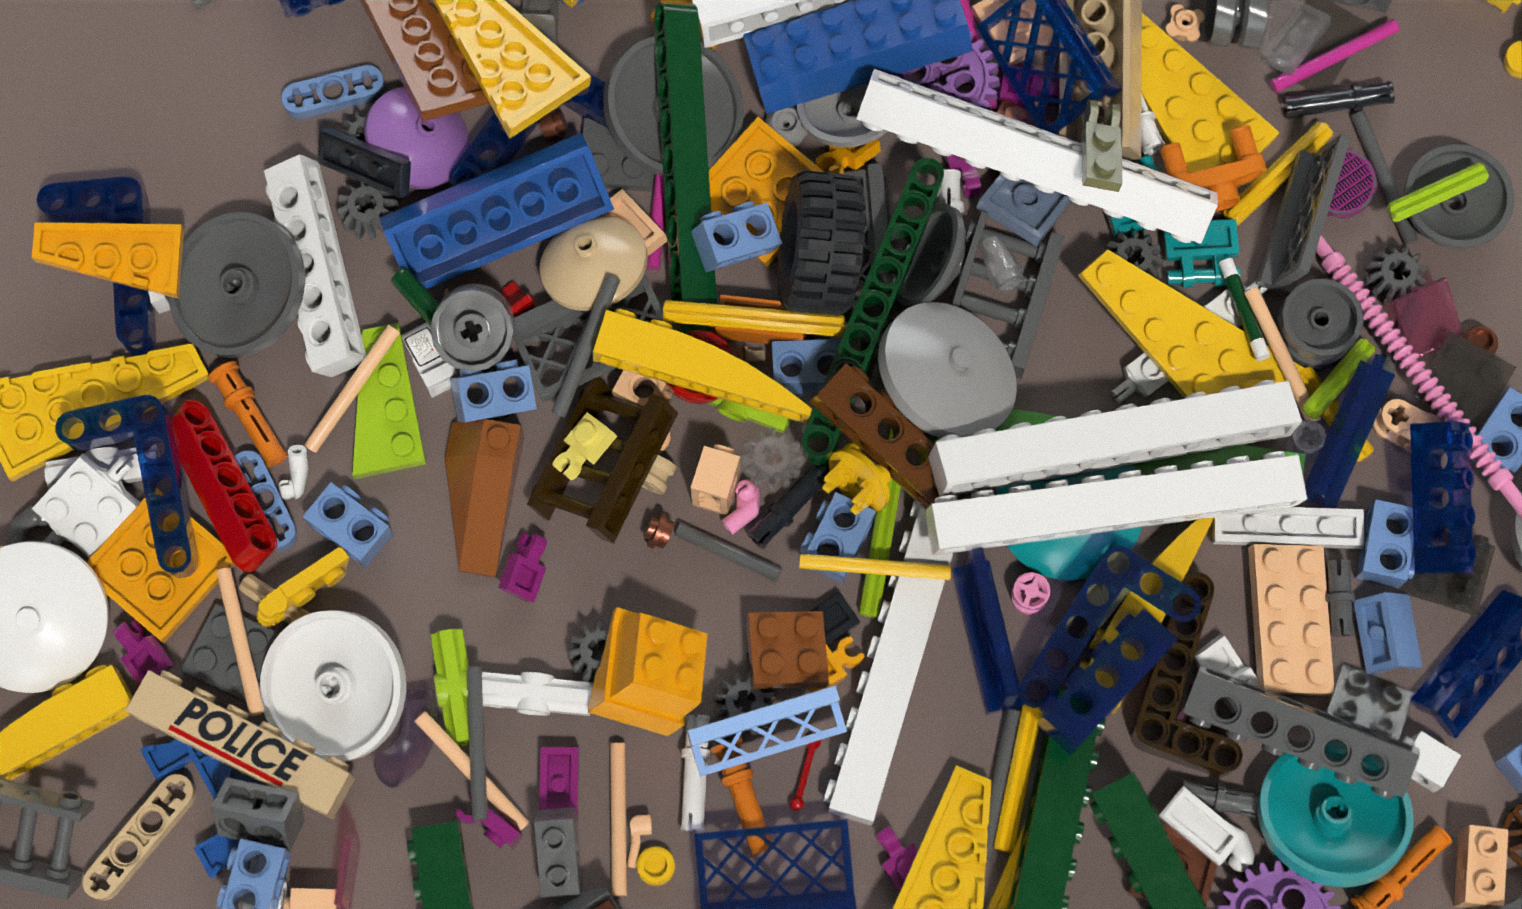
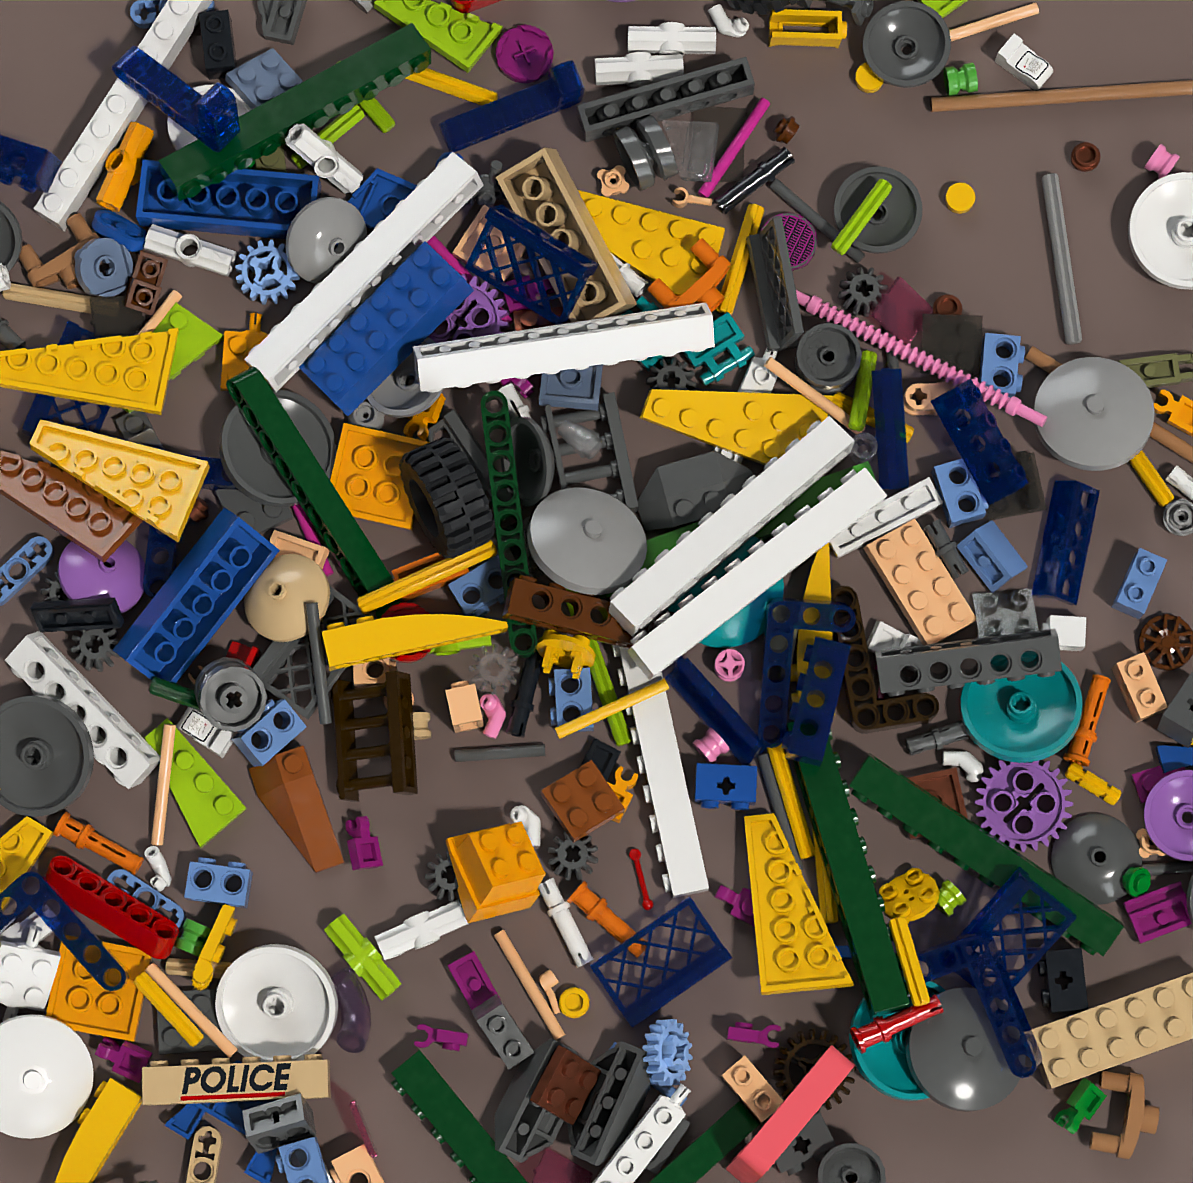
camera: 30 degrees left, 5 degrees up
(216, 626) = (168, 1009): none -> yellow axle
(287, 564) = (193, 937): none -> bright green wheel
(462, 761) = (408, 1009): light nougat bar -> none
(477, 744) = (402, 988): dark grey bar -> none
(586, 442) = (357, 730): light yellow plate -> none
(658, 531) = (442, 766): copper plate -> none
(717, 643) = (530, 822): none -> white arm
(739, 243) = (383, 525): medium blue brick -> none
(753, 357) = (437, 602): dark tan piece -> none
(761, 717) = (593, 858): light blue fence -> none
(946, 702) = (712, 775): none -> blue brick
(962, 669) = (711, 746): none -> bright pink wheel
(1089, 377) = (689, 489): none -> dark grey wedge
(1102, 148) = (609, 319): hinge -> none
(1201, 826) = (935, 765): white tile -> none
(1244, 309) = (773, 380): dark green bar -> none
(1256, 81) = (689, 199): none -> light nougat hand
(1401, 65) = (786, 129): none -> reddish brown plate

